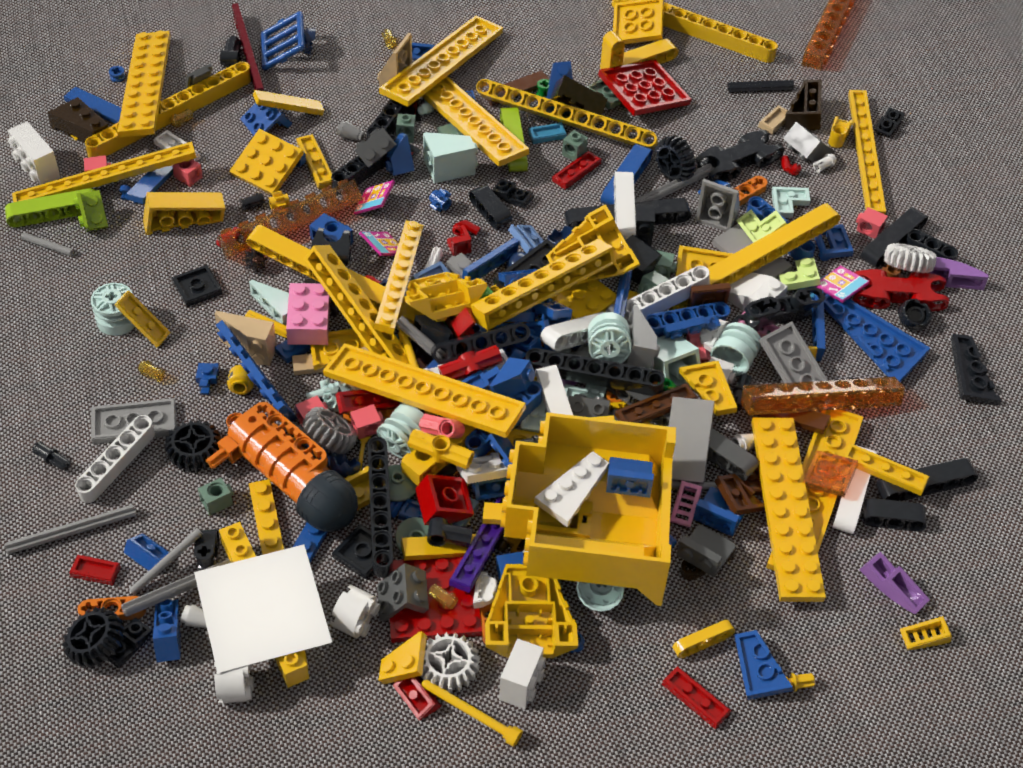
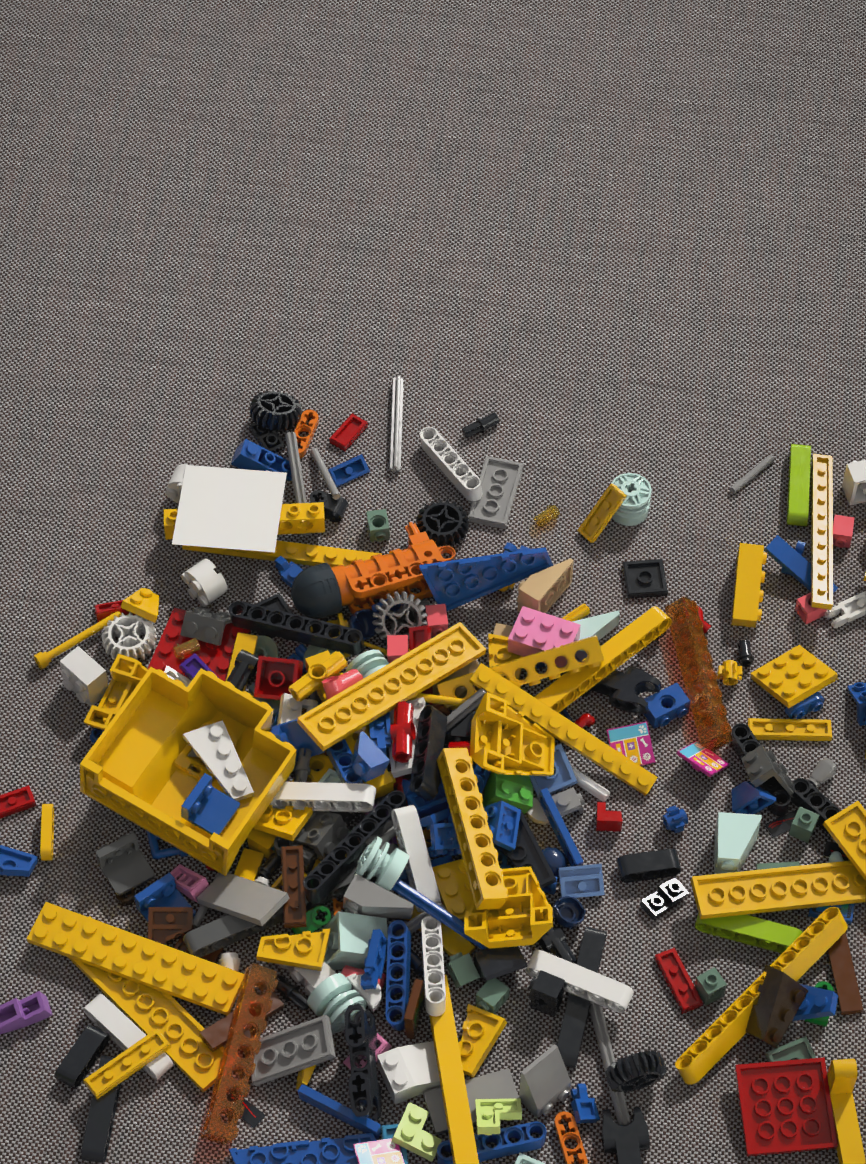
camera: 115 degrees right, 5 degrees up
(91, 209) = (775, 508): lime bracket -> none
(474, 229) = (629, 834): red arm -> none
(547, 133) = (751, 969): dark azure tile -> none
(634, 162) = (651, 1031): blue beam -> none
(830, 473) = (146, 1009): clear orange plate -> none

